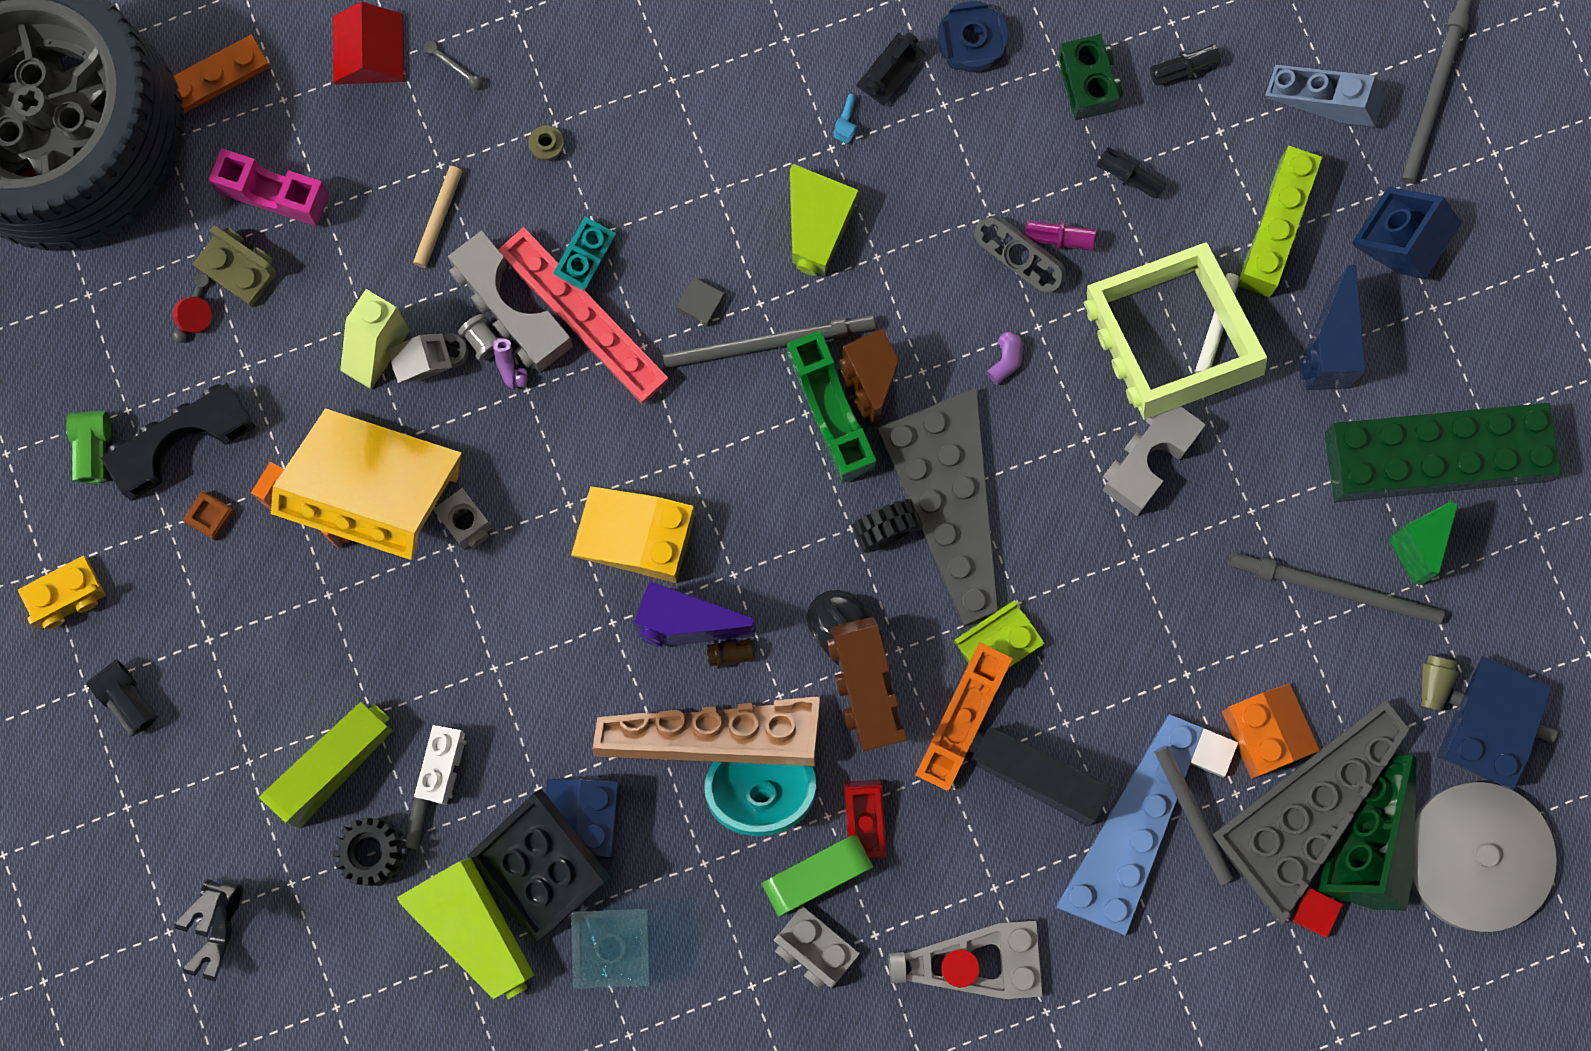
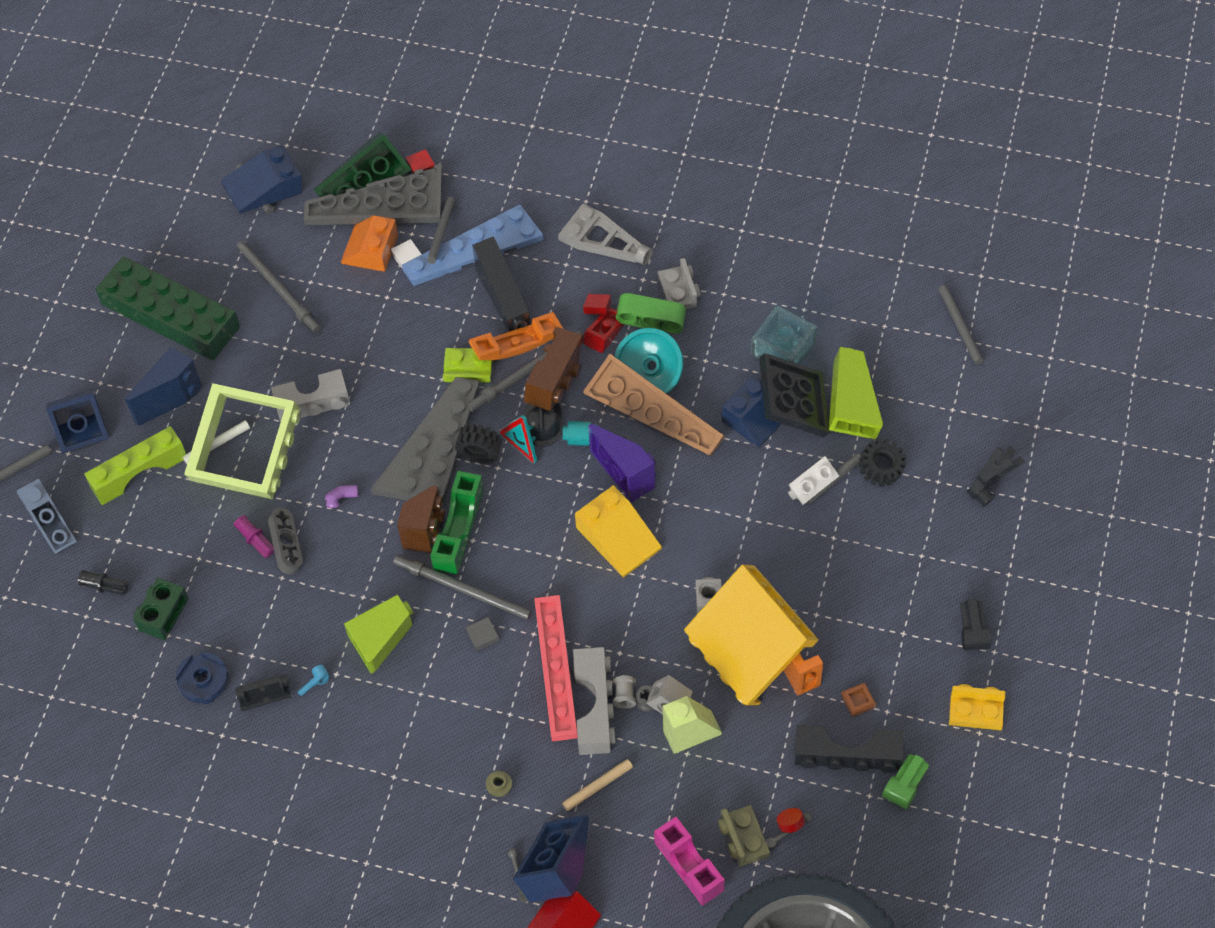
camera: 140 degrees left, 20 degrees down
(327, 765) = (878, 515): lime slope -> none
(415, 92) = (554, 860): none -> dark blue slope
(505, 363) = (621, 663): medium lavender arm -> none
(584, 253) = (533, 696): teal slope -> none
(779, 636) = (576, 433): none -> teal brick
(844, 580) = (519, 436): none -> piece
(900, 844) = (597, 304): none -> red tile
(933, 611) = (490, 393): none -> dark grey bar
(960, 968) = (613, 232): red tile -> none
(1131, 173) = (187, 544): black axle -> none
(1424, 542) = (215, 269): green slope -> none
(1437, 681) = (269, 217): olive cone -> none
(1482, 857) = (322, 138): light grey dish -> none

